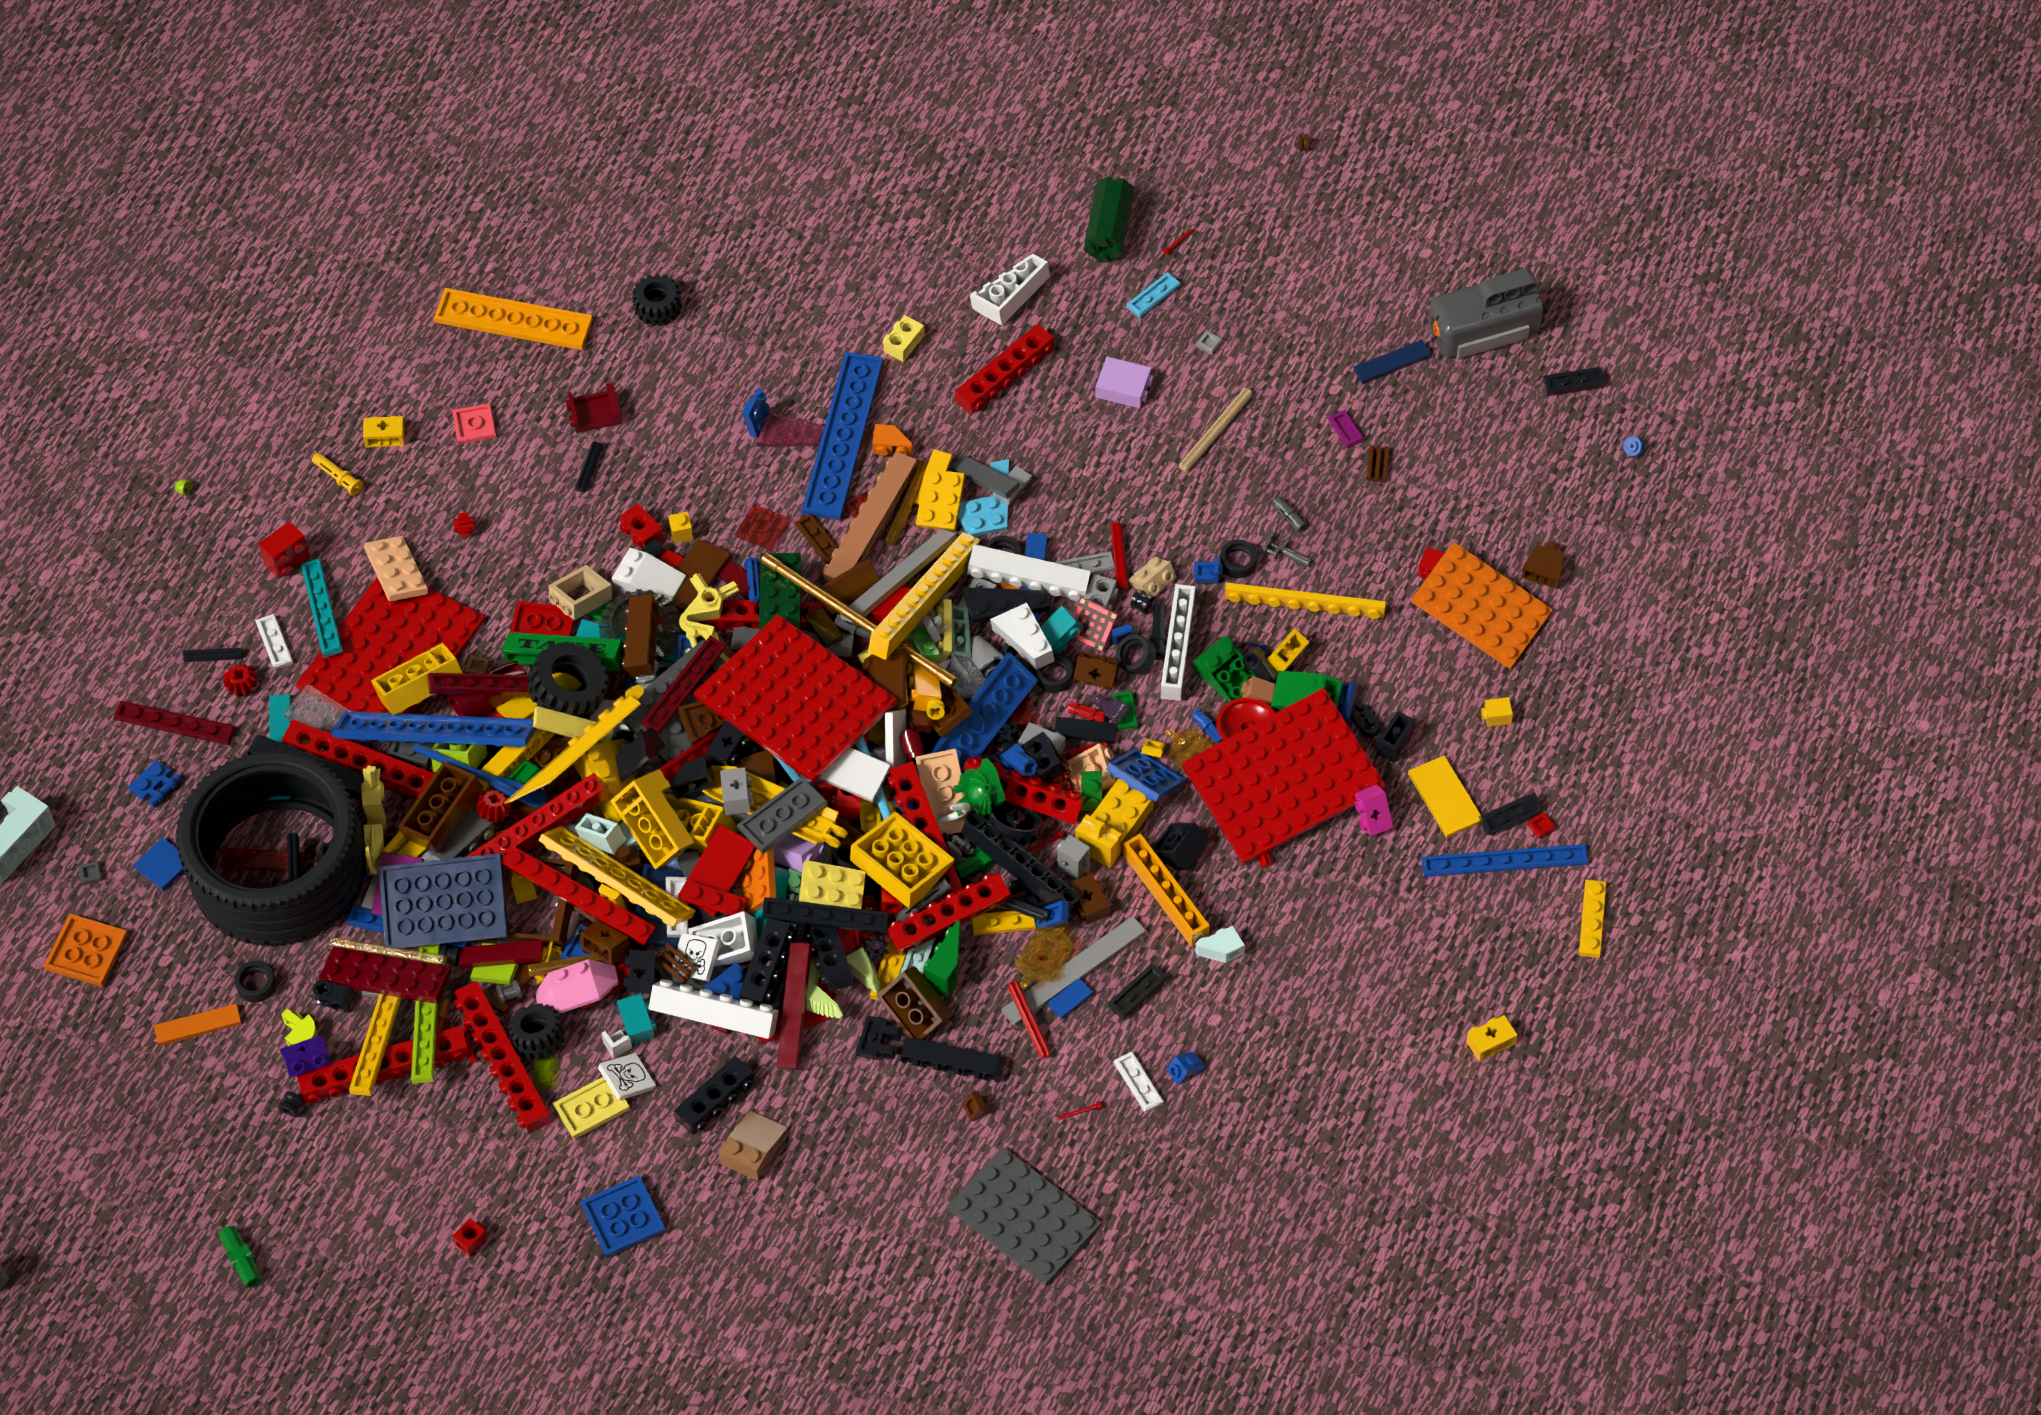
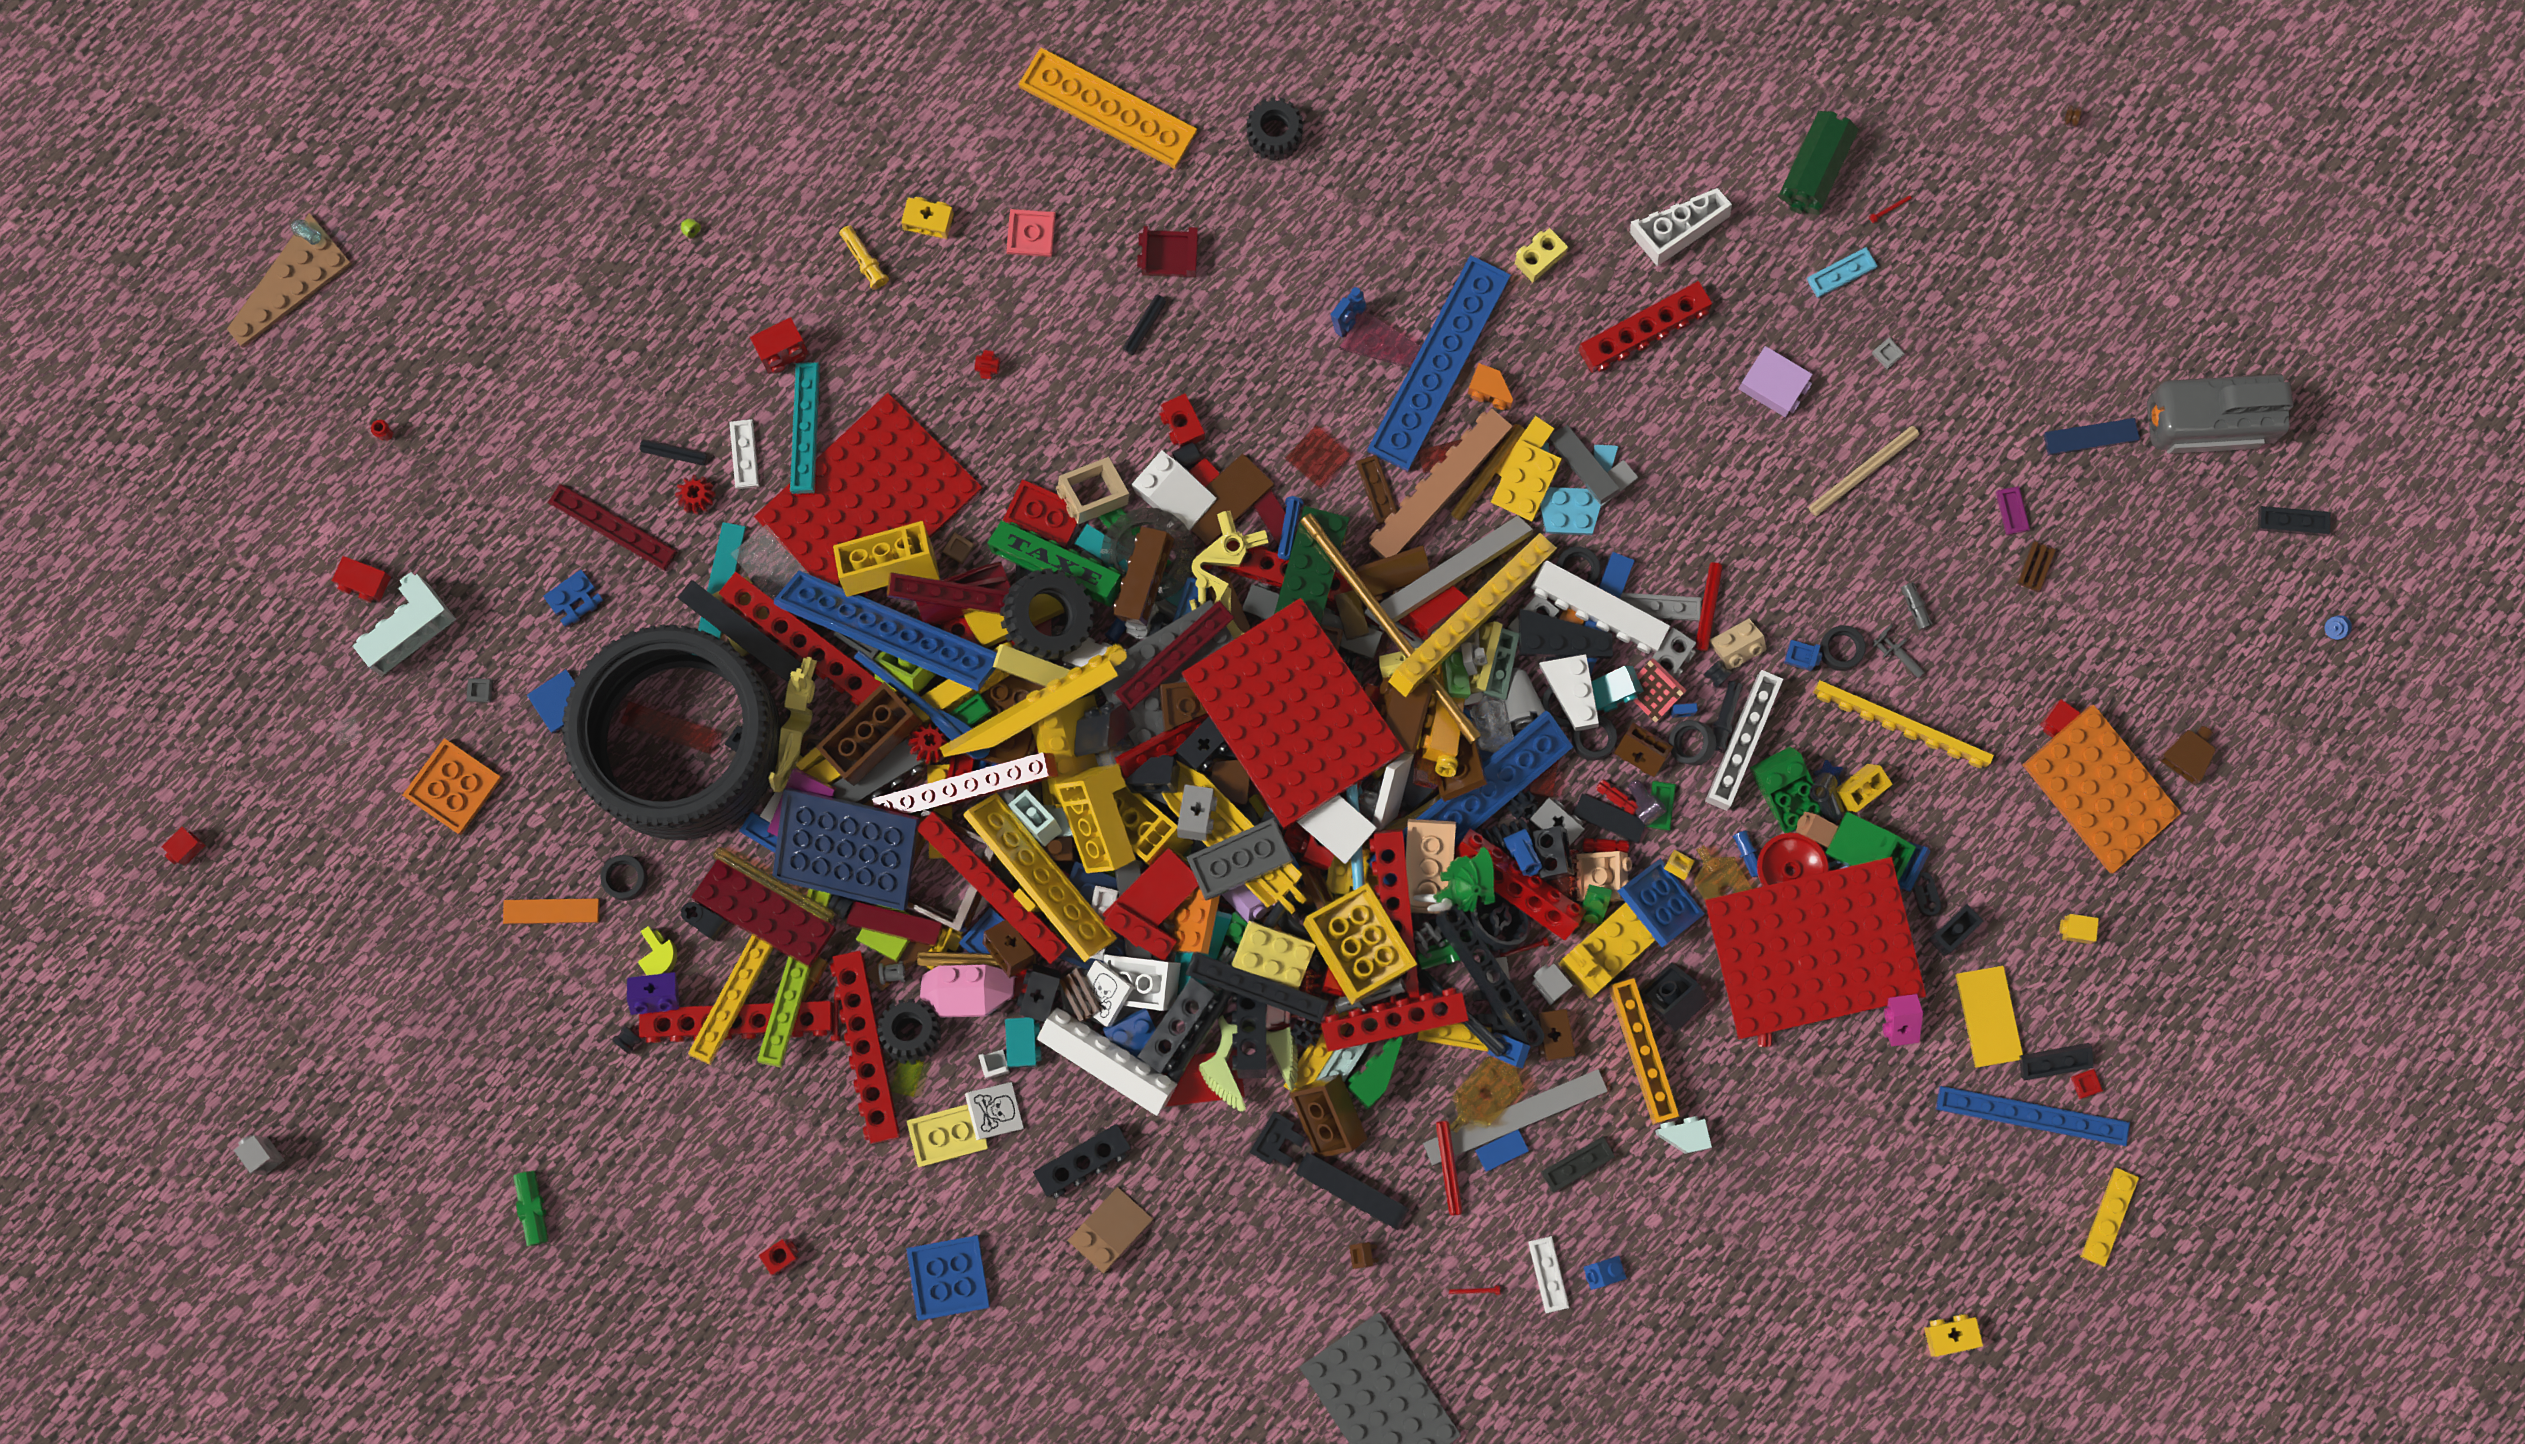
camera: 15 degrees right, 20 degrees up
(293, 856) = (697, 753): black axle -> none
(395, 568) = (897, 401): light nougat plate -> none
(680, 527) = (1226, 435): yellow brick -> none
(794, 1006) = (1195, 1083): dark red tile -> none
(912, 744) = (1409, 802): dark red brick -> none

